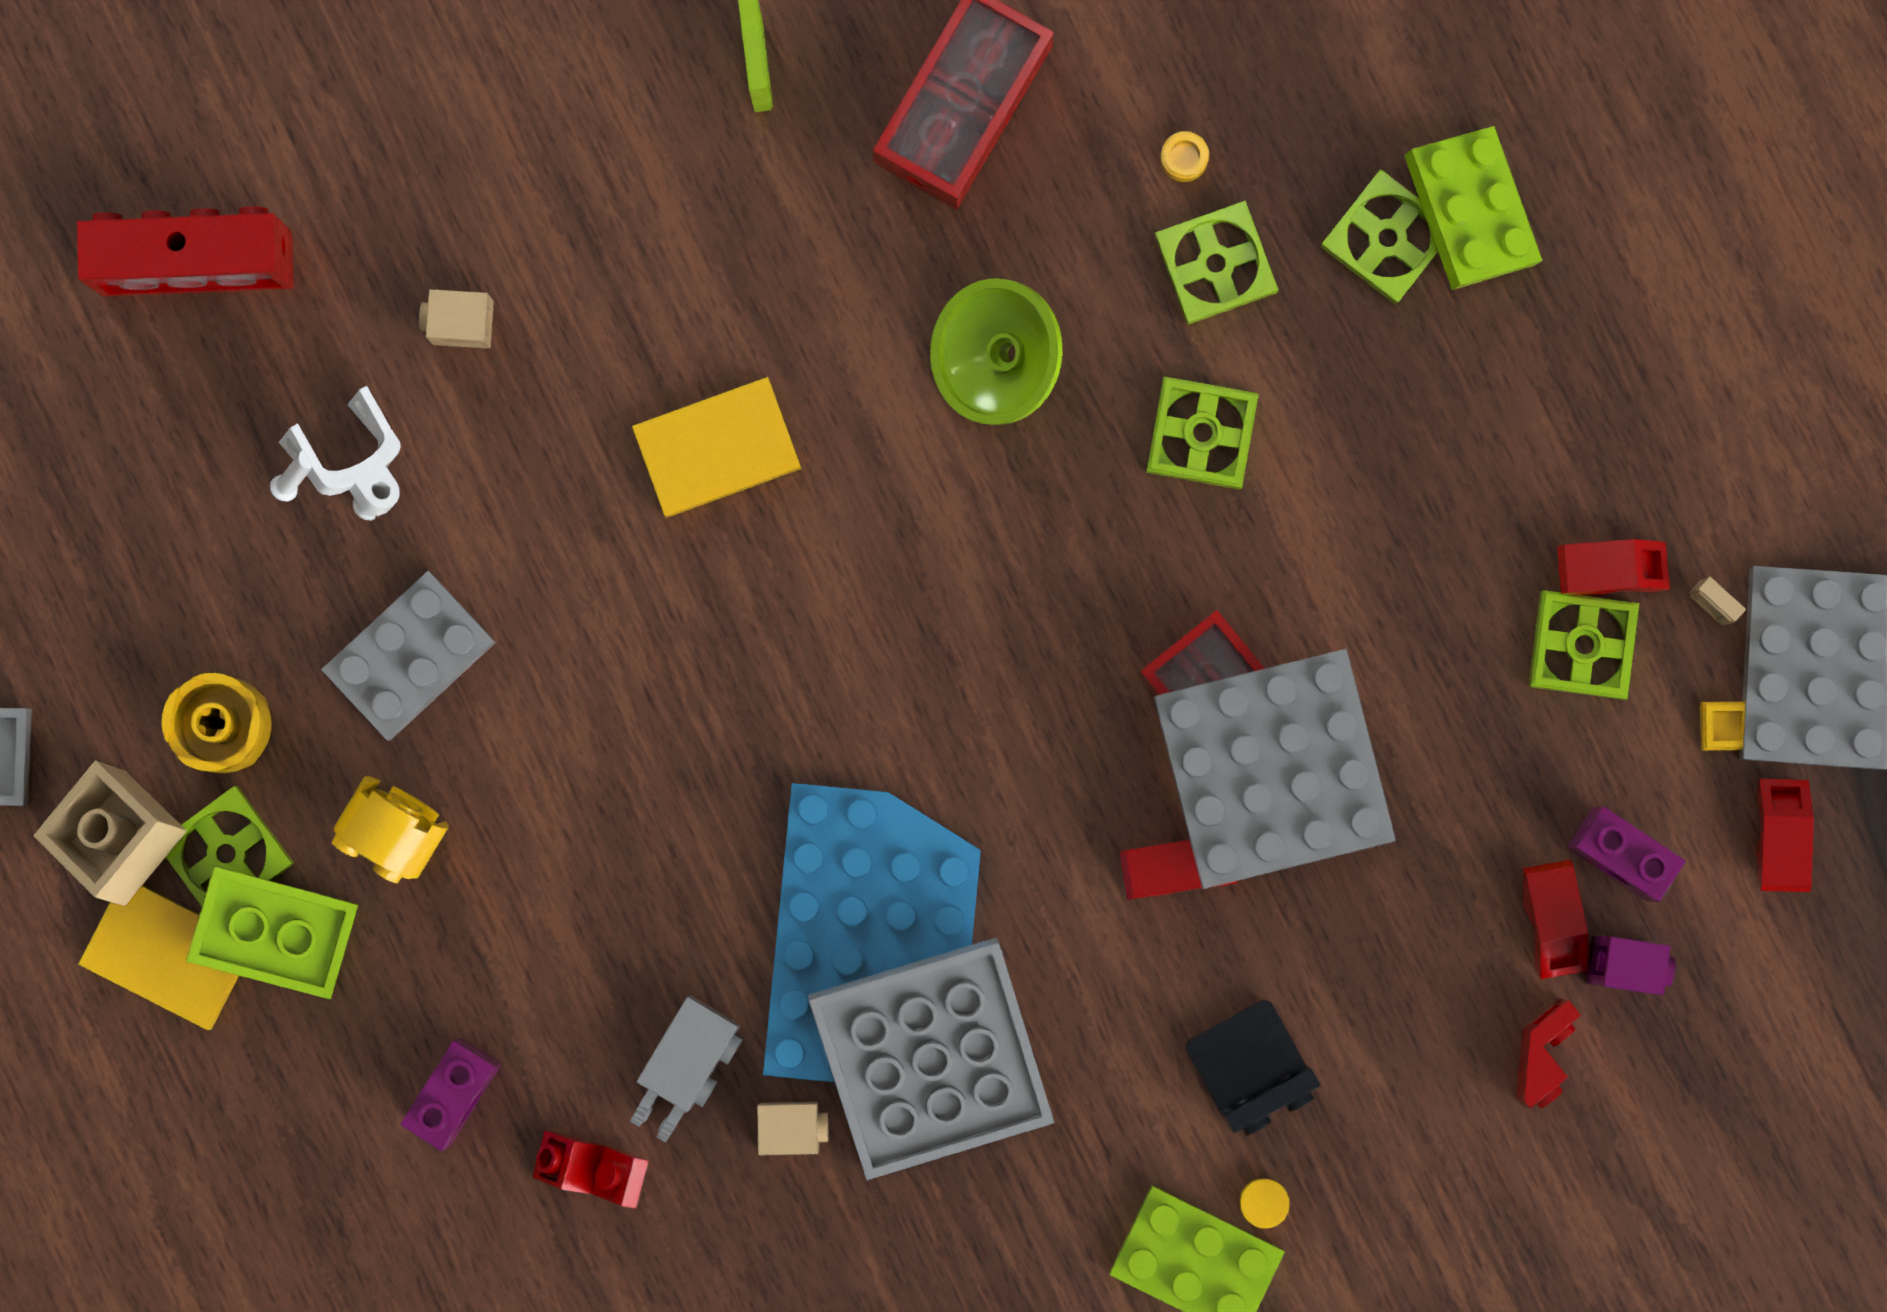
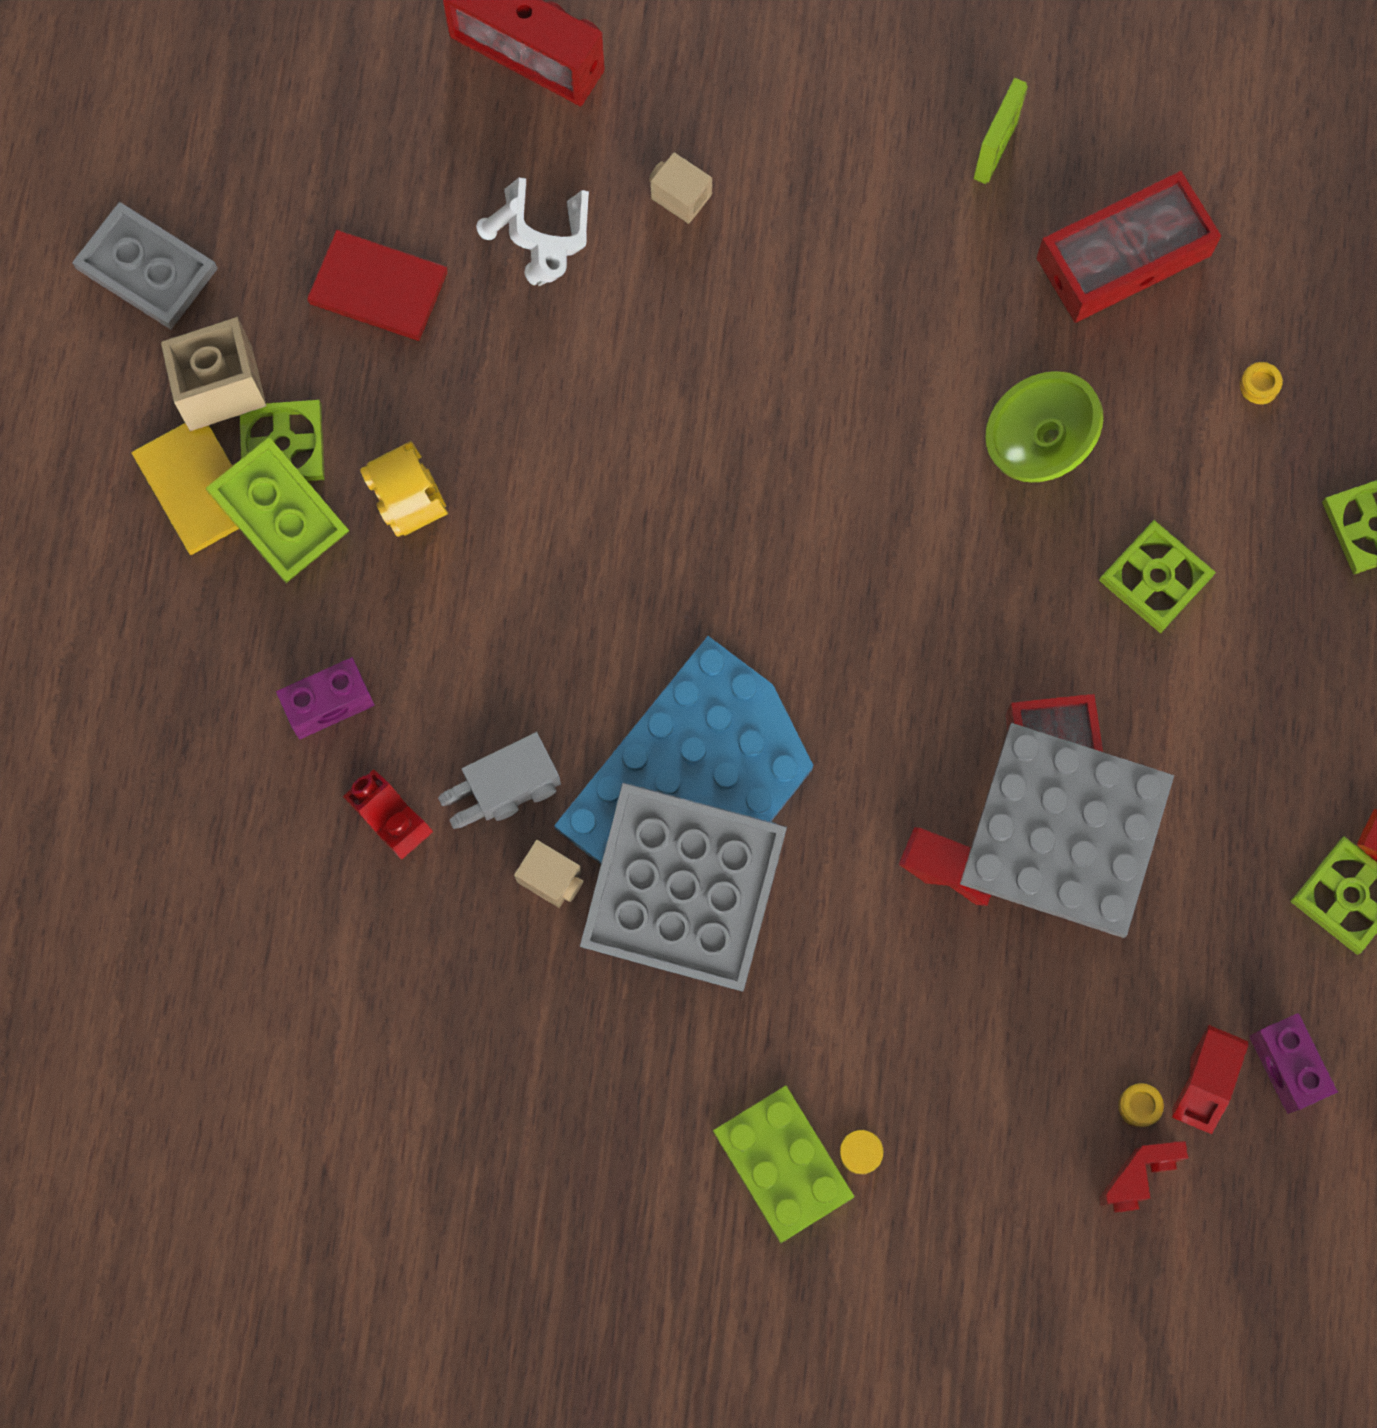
camera: 30 degrees right, 10 degrees down
(207, 697) = (356, 350): yellow brick -> none
(211, 622) = (377, 285): none -> red tile
(408, 656) = (497, 388): light grey plate -> none
(716, 447) = (803, 379): yellow tile -> none
(1252, 250) = (1244, 437): lime piece -> none
(1252, 1067) = (914, 1044): black bracket -> none
(1503, 984) = (1141, 1105): none -> yellow tile
(1630, 965) = (1248, 1144): magenta brick -> none

